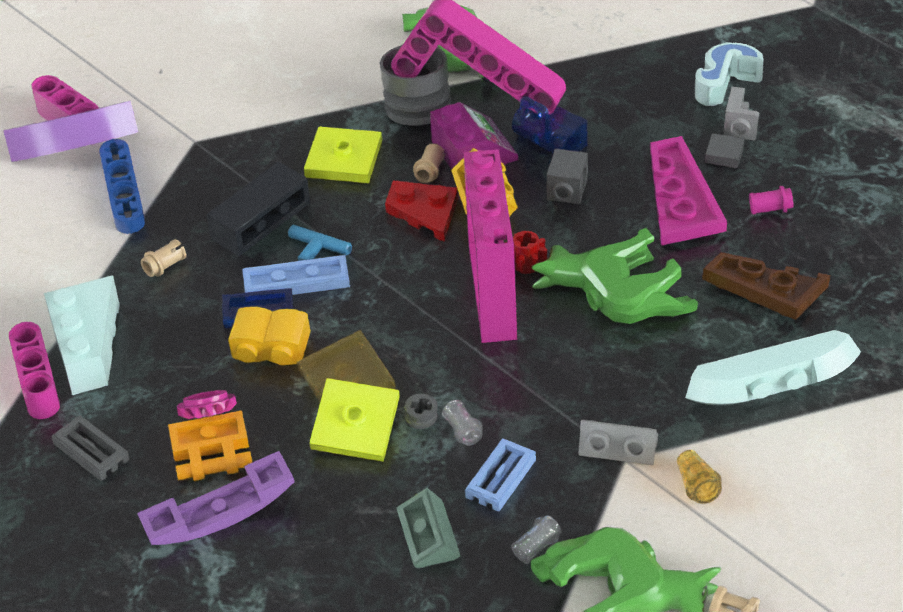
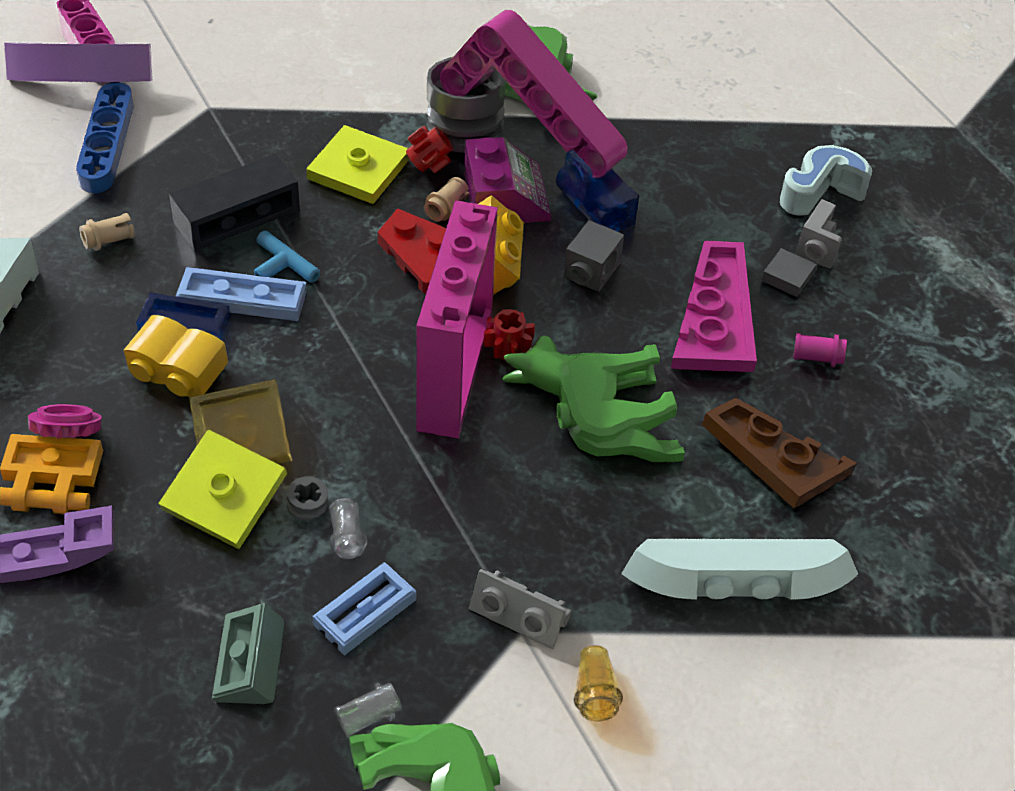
camera: 10 degrees right, 5 degrees up
(399, 127) = (429, 149): none -> red gear

